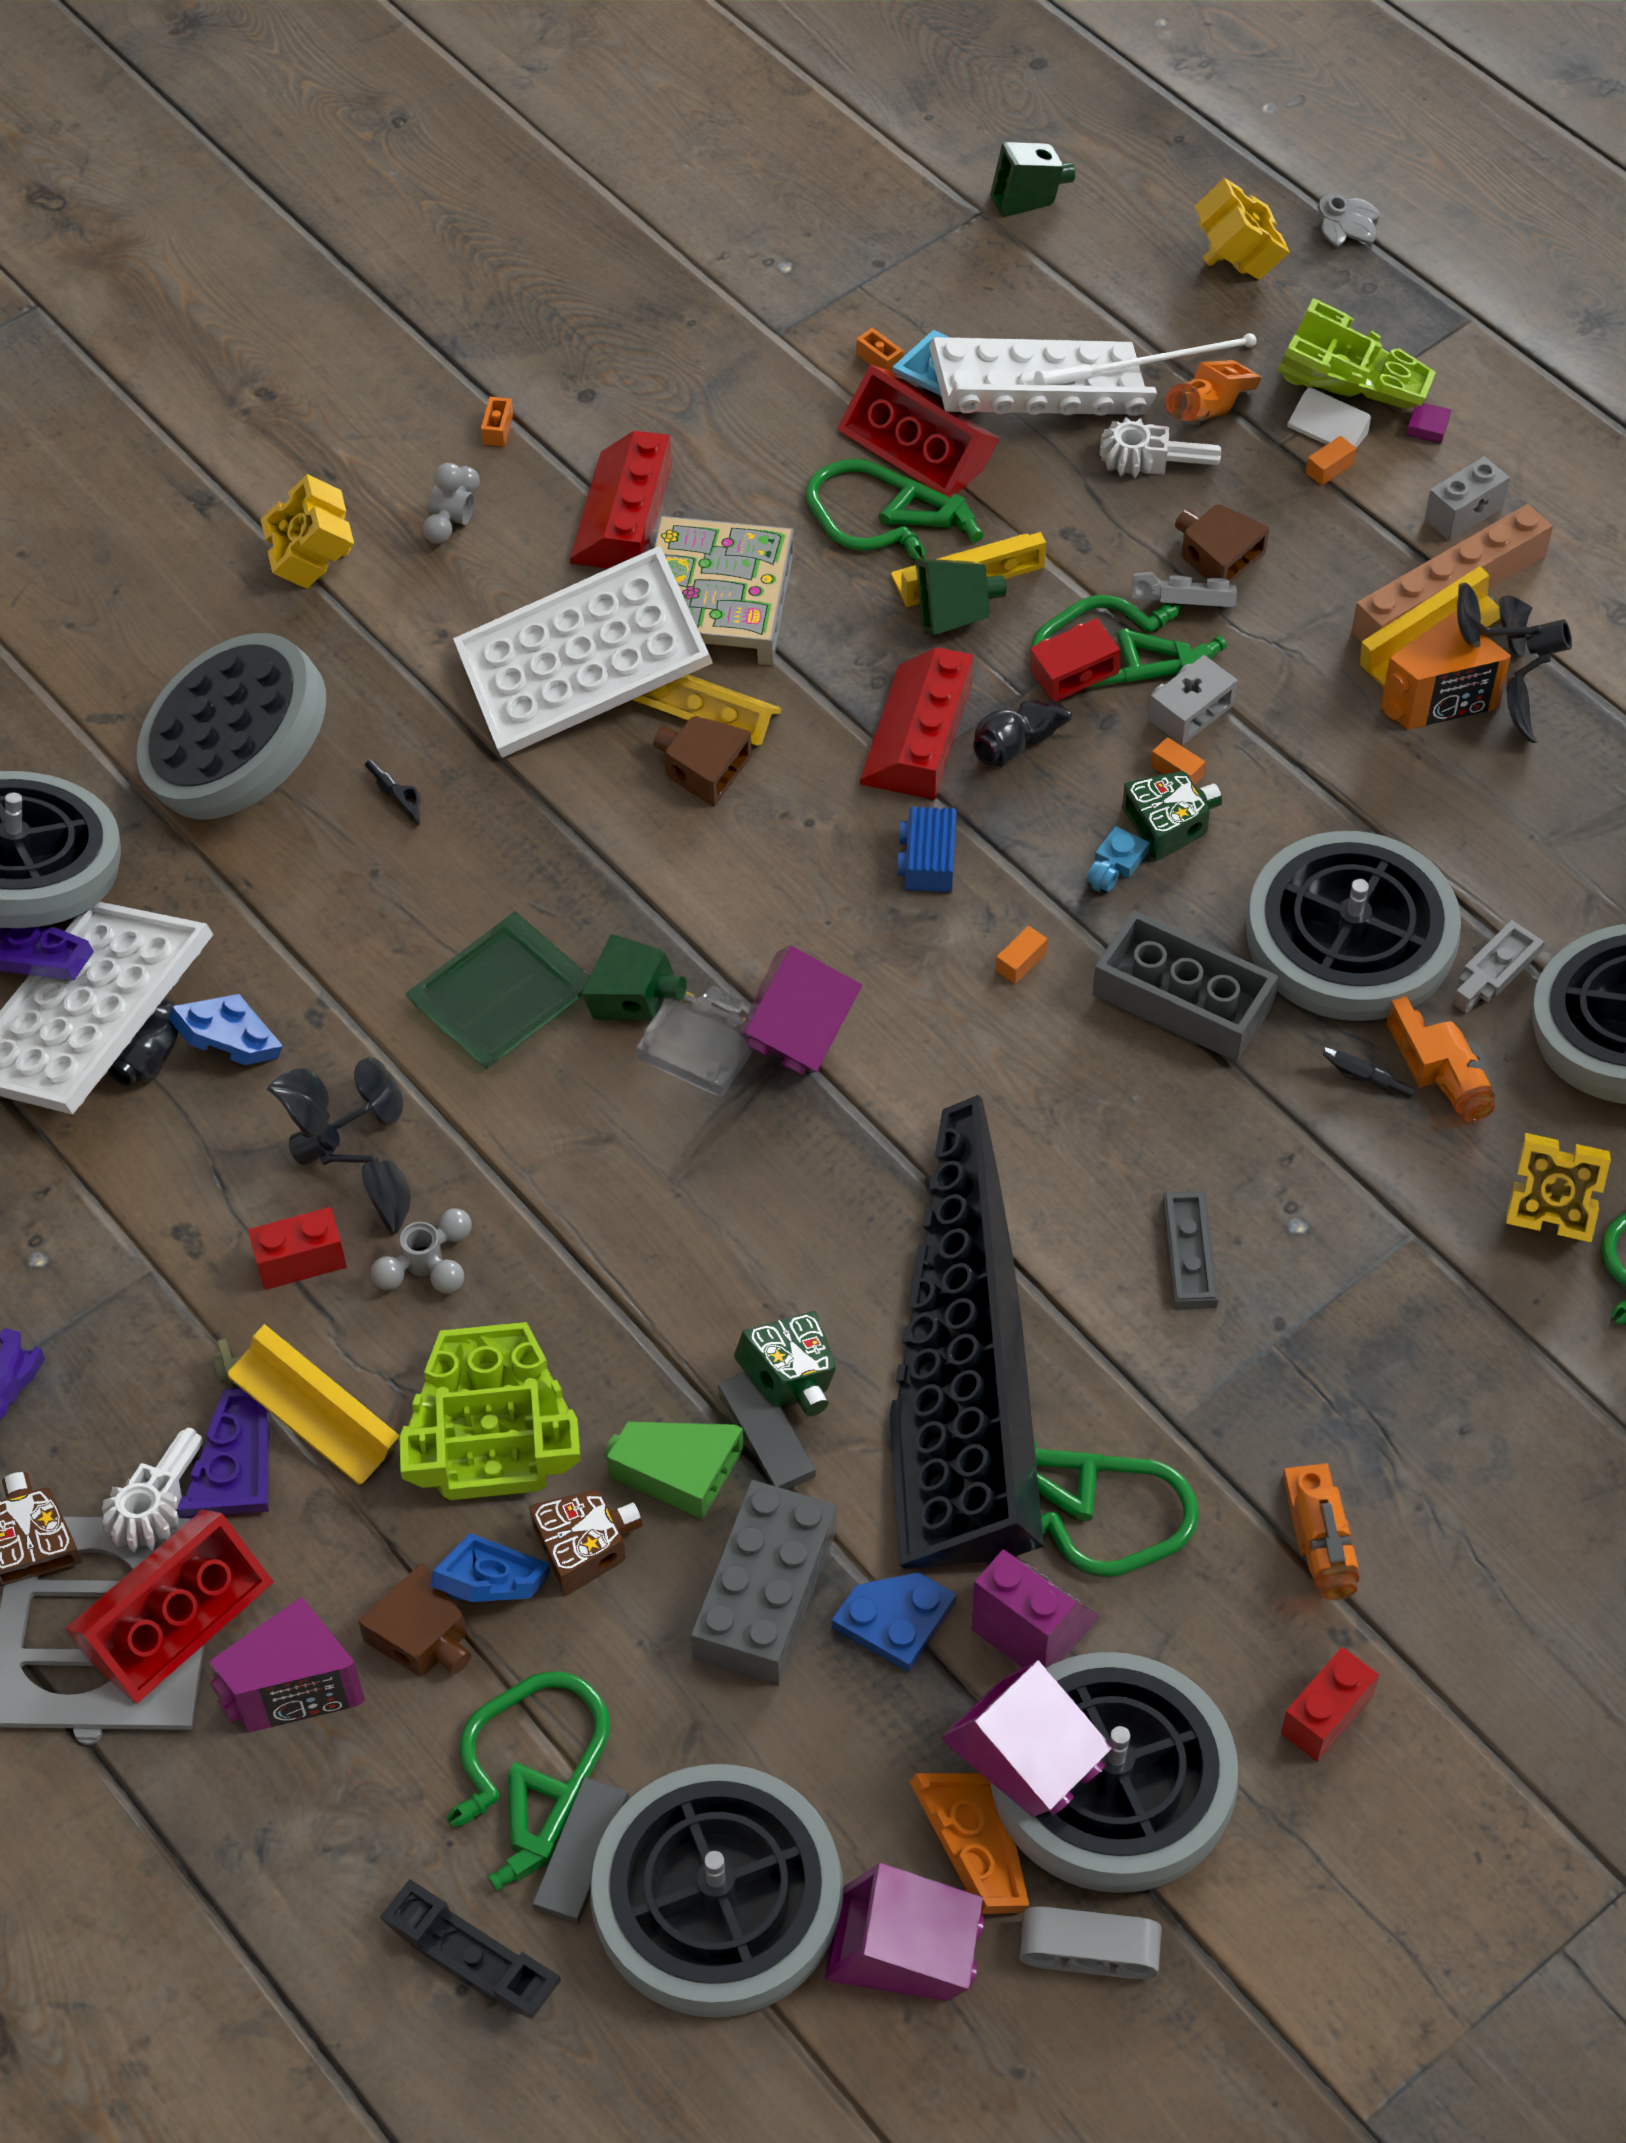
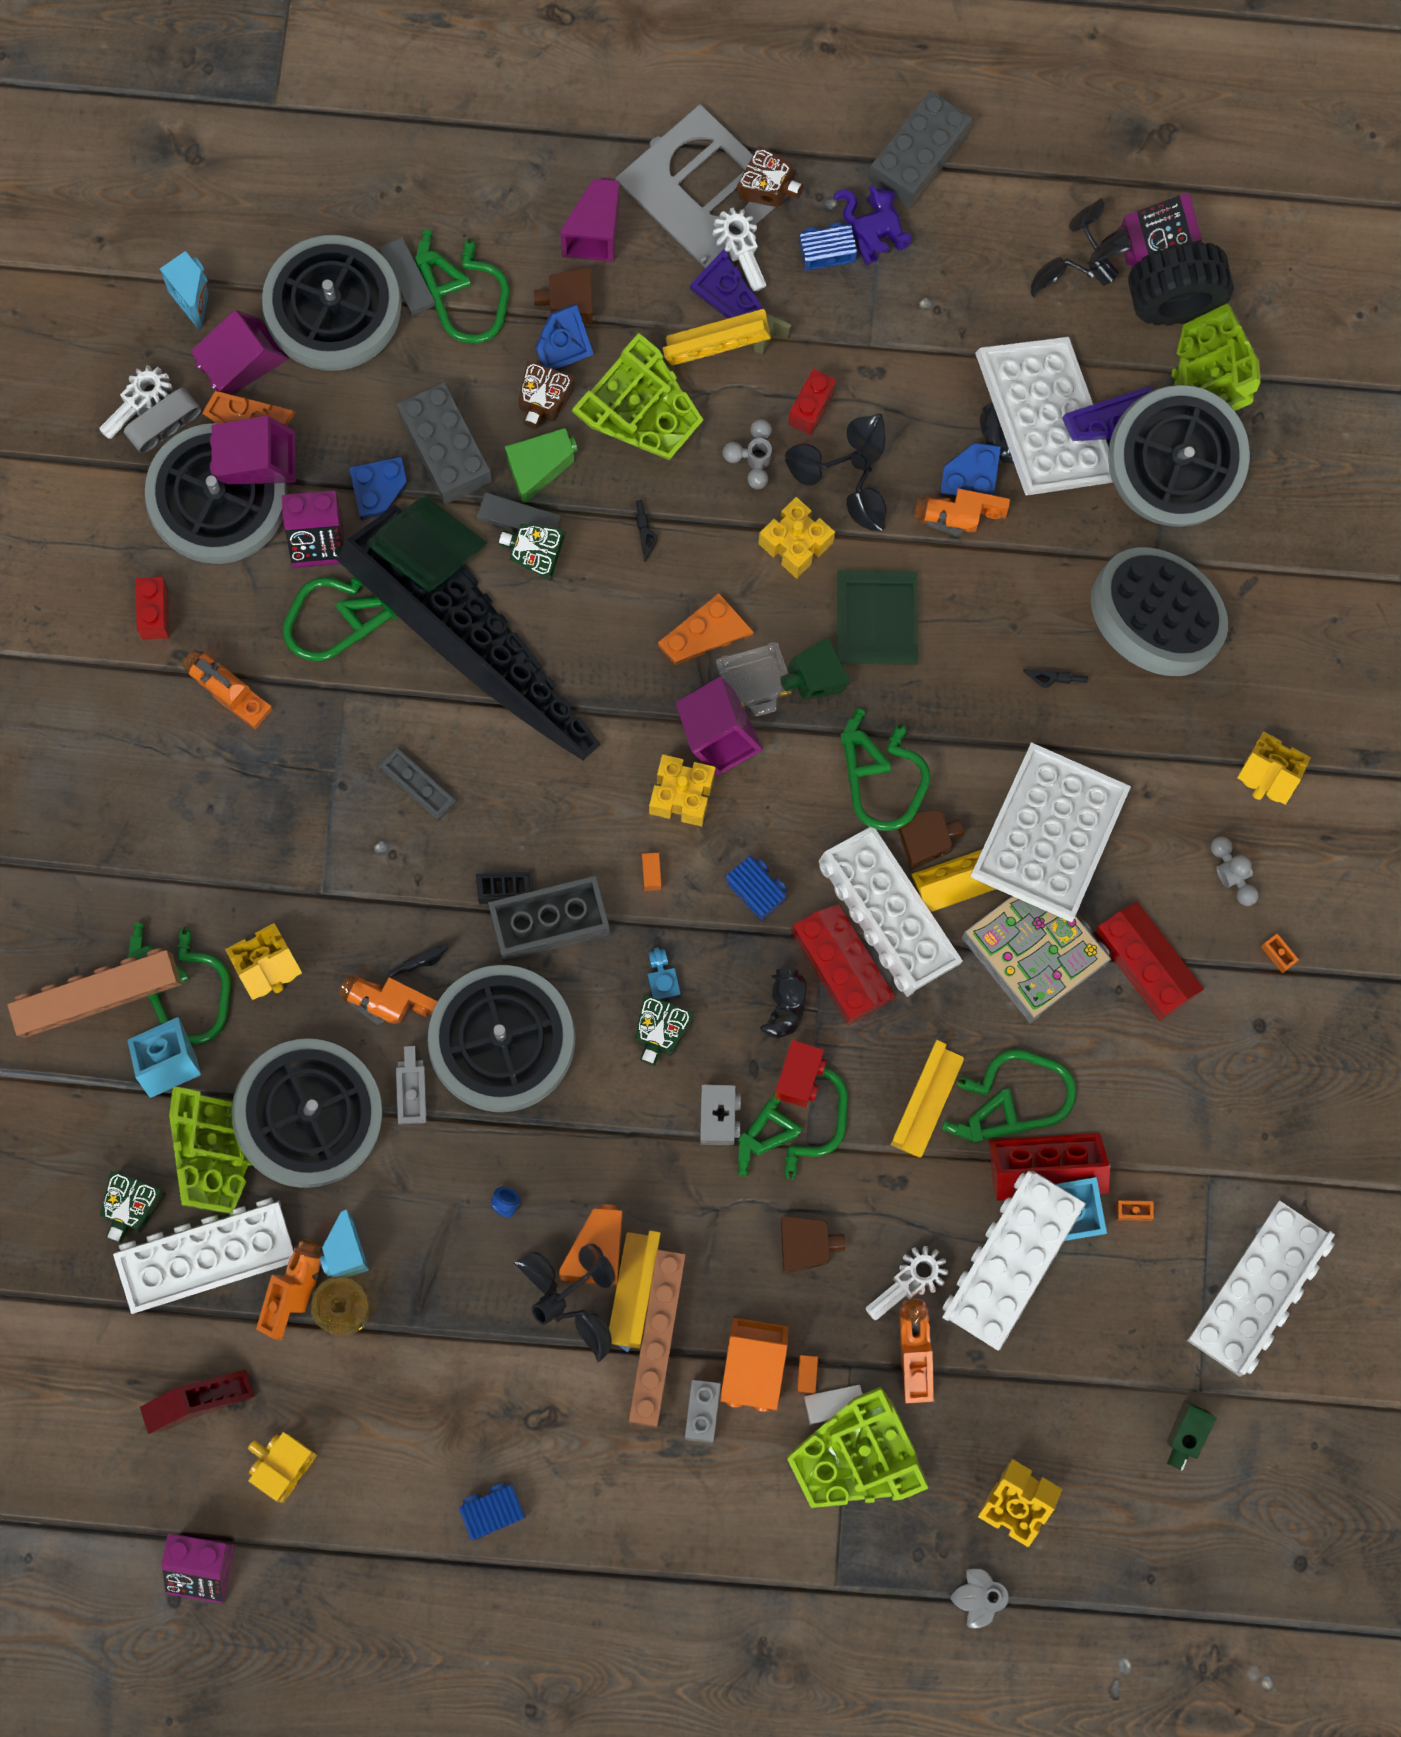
camera: 130 degrees right, 20 degrees up
(61, 1405) = (827, 246): none -> blue brick
(170, 1605) = (677, 206): red slope -> none
(289, 1005) = (961, 514): none -> orange plate
(469, 1953) = (405, 200): black slope -> none
(489, 1126) = (796, 537): none -> yellow brick
(643, 1288) = (642, 523): none -> black hand
(669, 904) = (853, 737): none -> green piece
(698, 1132) = (705, 630): none -> orange wing
(818, 728) = (889, 910): none -> white bracket
(837, 224) = (1261, 1289): none -> white bracket
(883, 2081) = (187, 286): none -> medium azure slope
(906, 992) = (682, 790): none -> yellow brick
(913, 1471) = (426, 543): none -> clear green piece
(955, 593) = (905, 1059): dark green torso -> none
(1085, 370) = (990, 1280): white piece -> none
(1099, 2002) = (136, 399): none -> white gear
(1172, 757) = (688, 1067): orange piece -> none
(1182, 590) = (791, 1190): light grey hinge -> none
(1213, 1090) = (492, 878): none -> black slope
(1371, 495) = (754, 1364): none -> orange slope
(1429, 422) = (778, 1465): magenta tile -> none
(1492, 796) = (505, 1201): none -> blue tile

